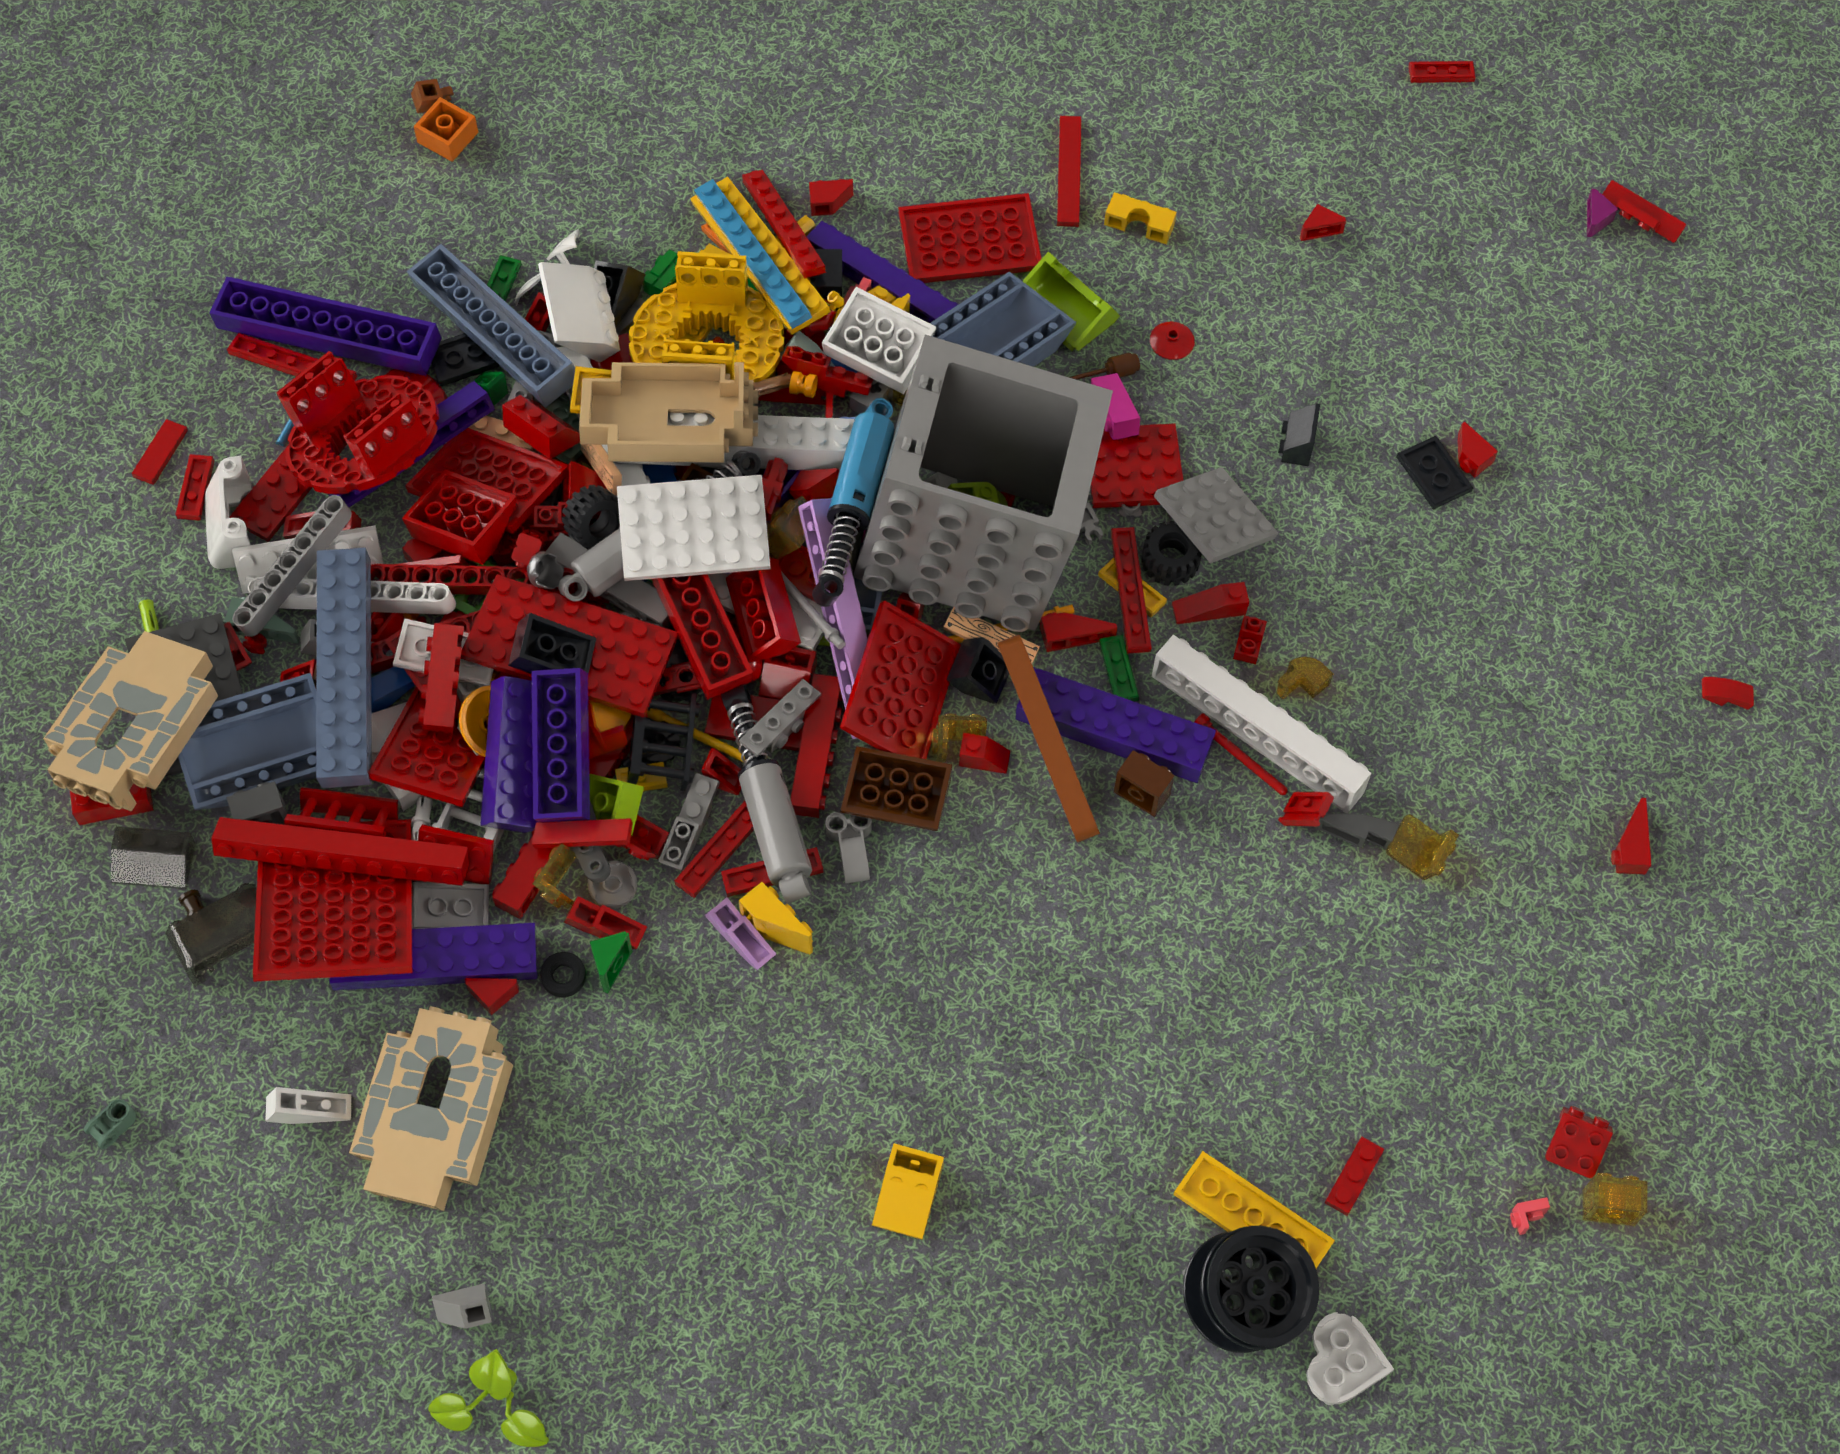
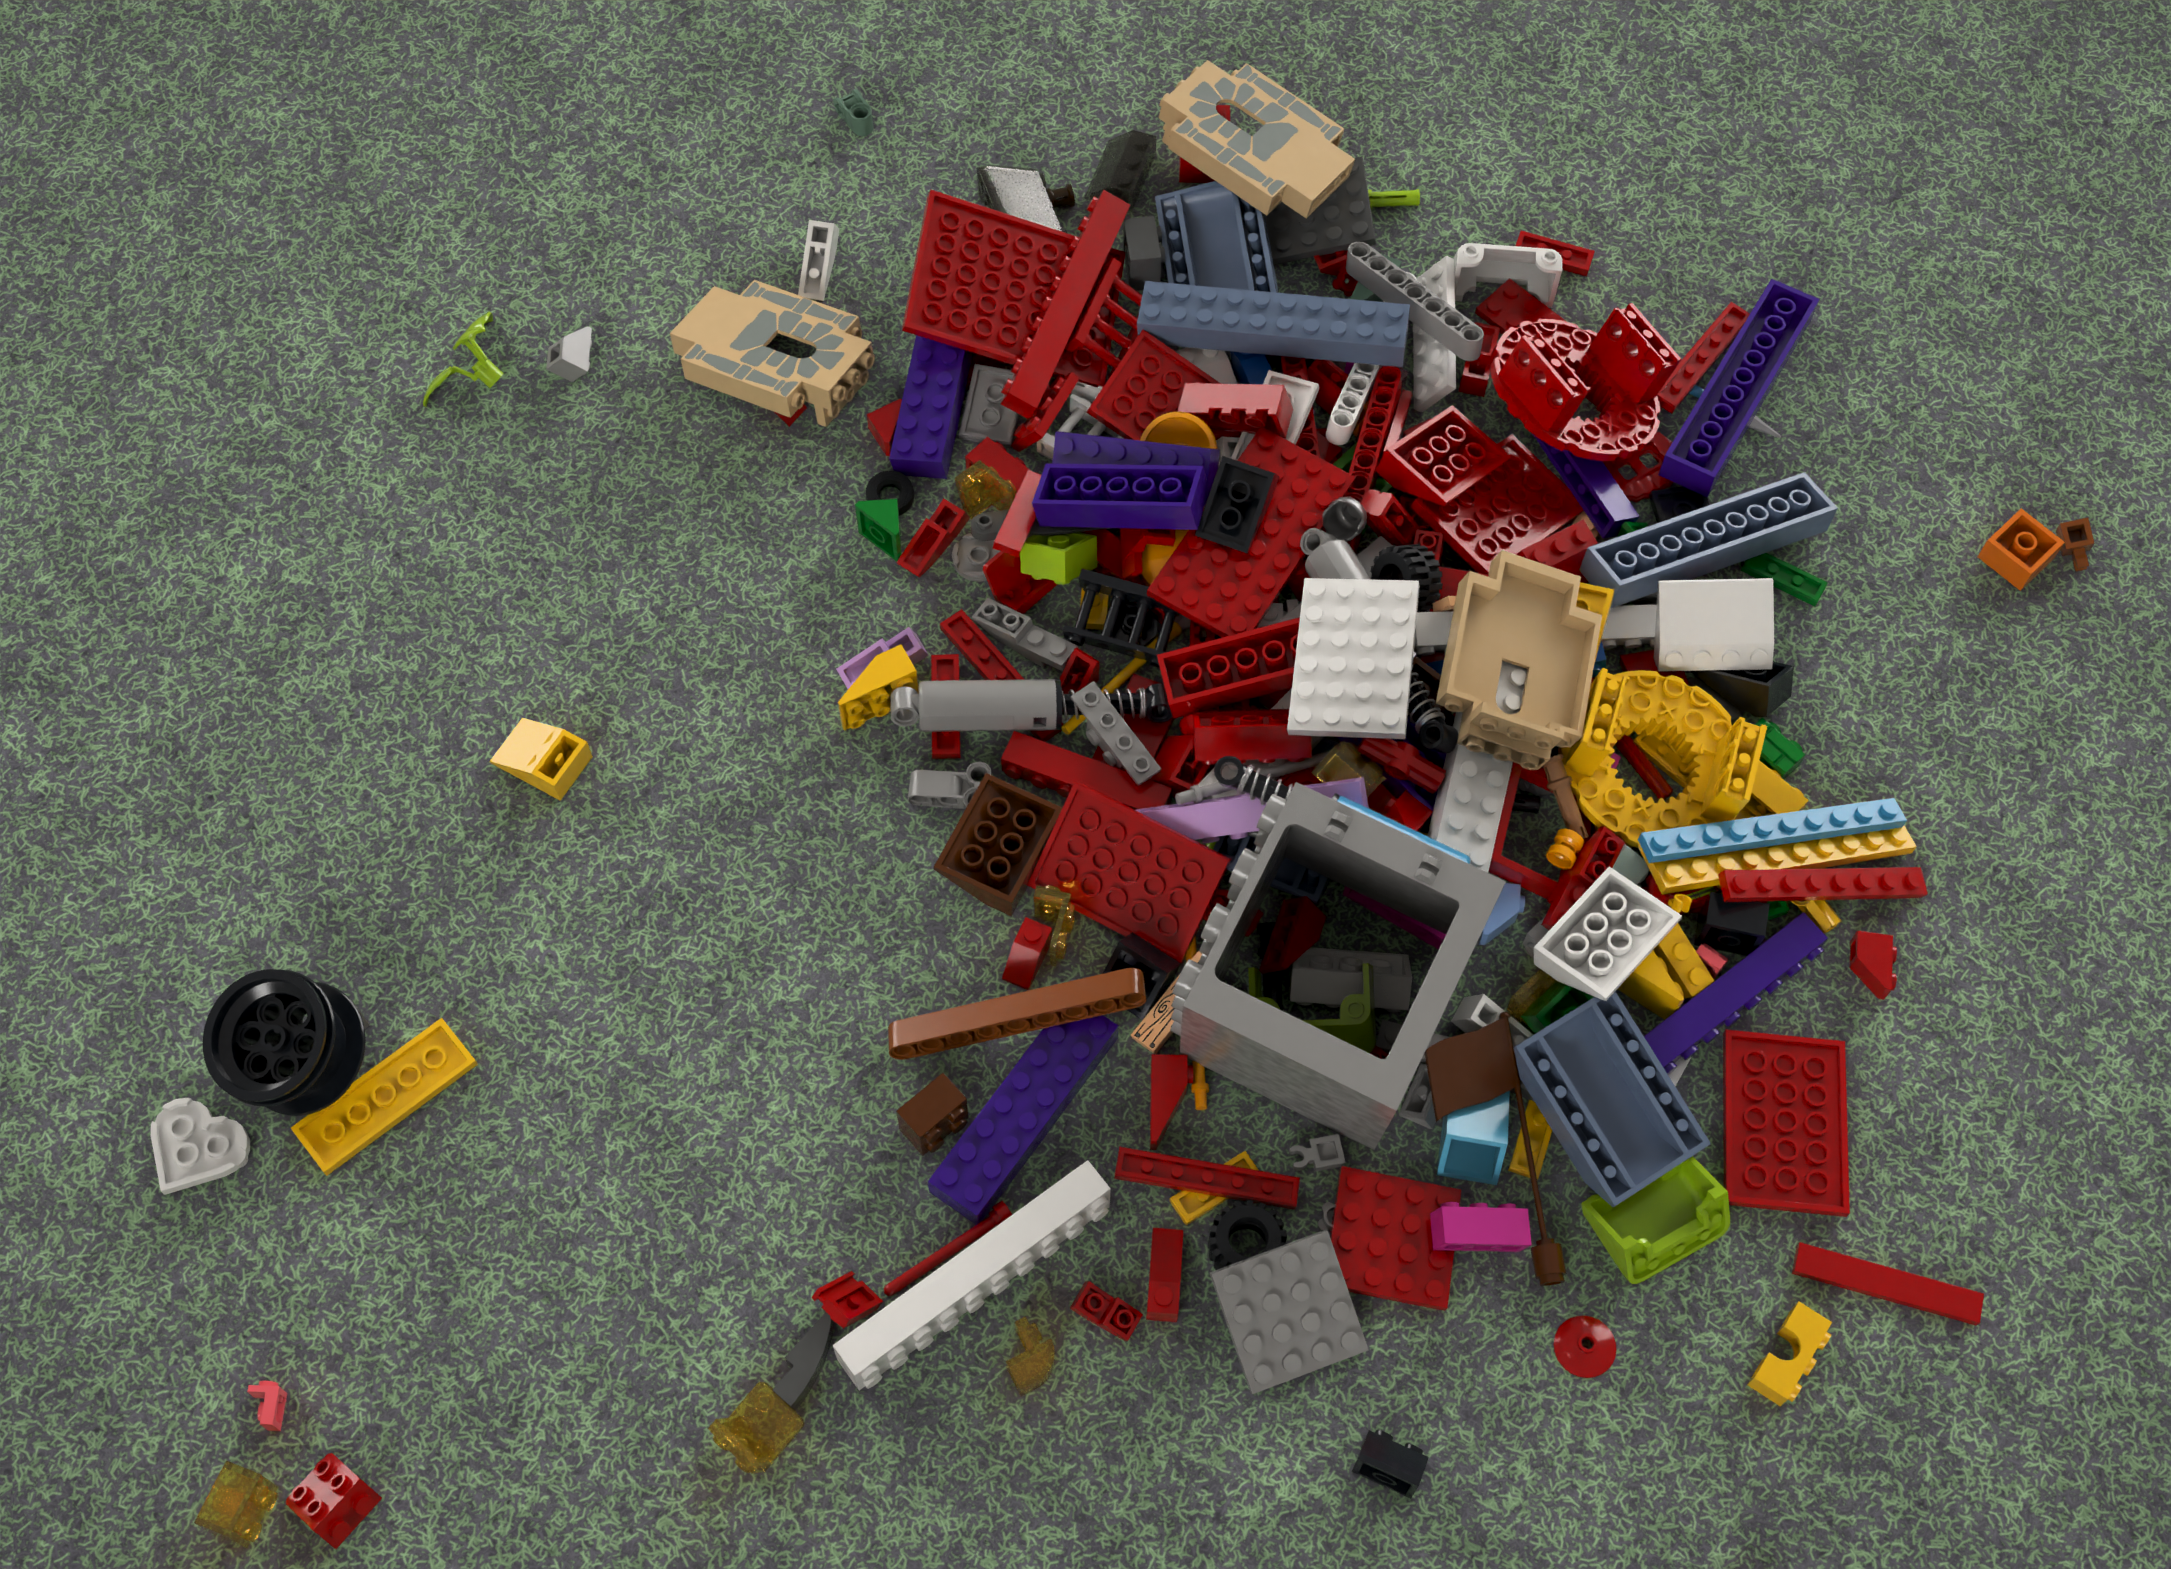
camera: 105 degrees right, 0 degrees up
(159, 452) = (1607, 230): red tile -> none
(566, 244) = (1782, 642): white plant -> none
(1118, 667) = (1101, 1139): green tile -> none
(1354, 1176) = (391, 1223): red plate -> none

